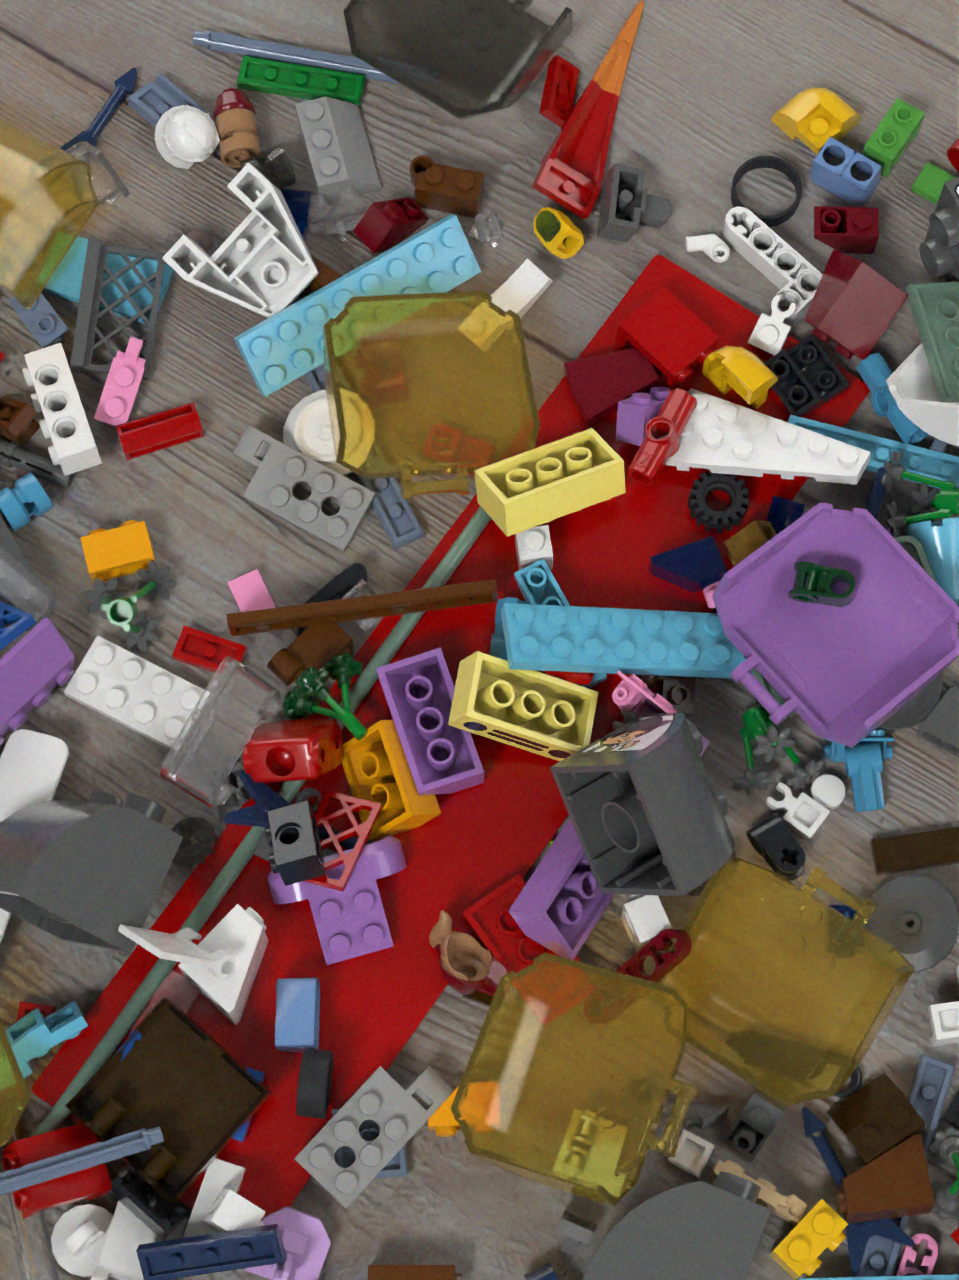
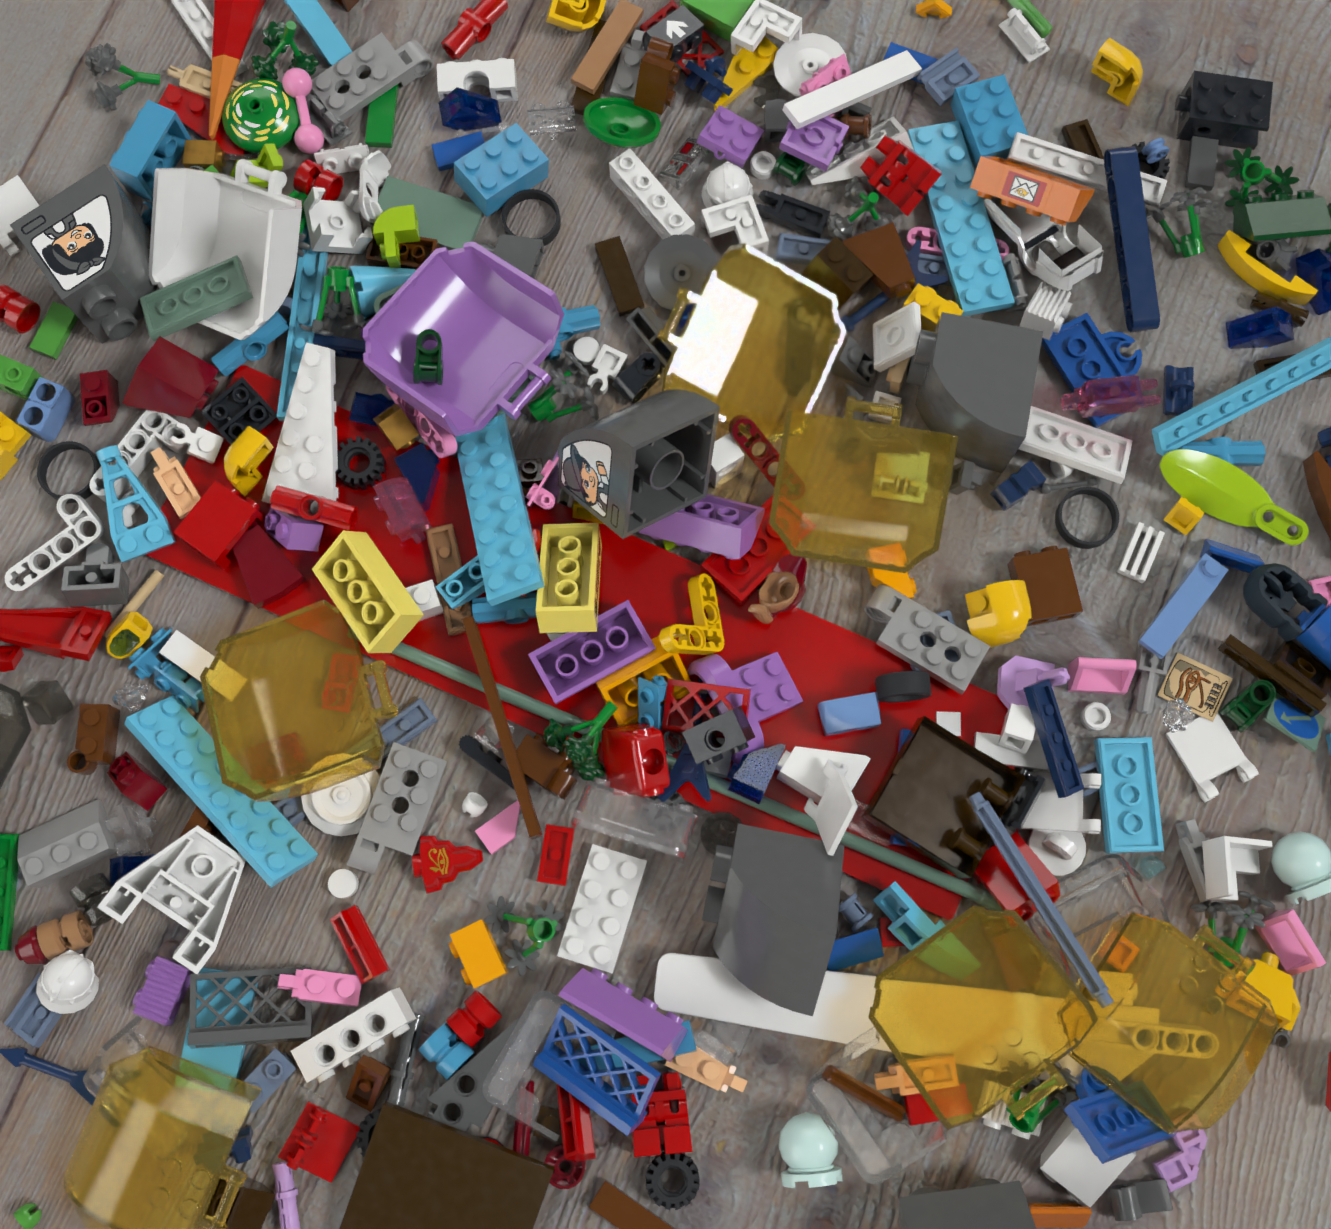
camera: 100 degrees left, 5 degrees up
(25, 967) = (855, 950): none -> blue slope
(52, 539) = (474, 1018): none -> red wheel
(66, 976) = (854, 912): none -> sand blue bush
(155, 226) = (162, 990): none -> medium lavender brick
(229, 528) = (442, 862): none -> red rock
(230, 422) = (343, 883): none -> white tile
(249, 885) = (754, 772): none -> clear blue slope
(264, 1139) = (950, 721): none -> white sticker
(293, 578) = (474, 804): none -> white hinge
(357, 782) = (649, 698): none -> dark azure hinge
(386, 1229) = (999, 612): none -> yellow brick
(437, 861) = (702, 597): none -> yellow beam
(497, 143) = (47, 702): none -> clear smoke panel
(498, 272) = (171, 678): none -> dark azure hinge
(527, 246) = (147, 659): none -> dark azure hinge
(576, 582) = (446, 561): none -> medium nougat tile
(600, 247) = (137, 599): none -> tan bar
(644, 533) = (403, 509): none -> clear pink brick
(667, 256) = (143, 538): none -> medium azure plate
(672, 163) = (52, 547): none -> white beam
(728, 297) = (175, 483): none -> light nougat hinge
(782, 1180) = (896, 336): none -> white tile
(845, 867) = (648, 327): none -> dark grey piece

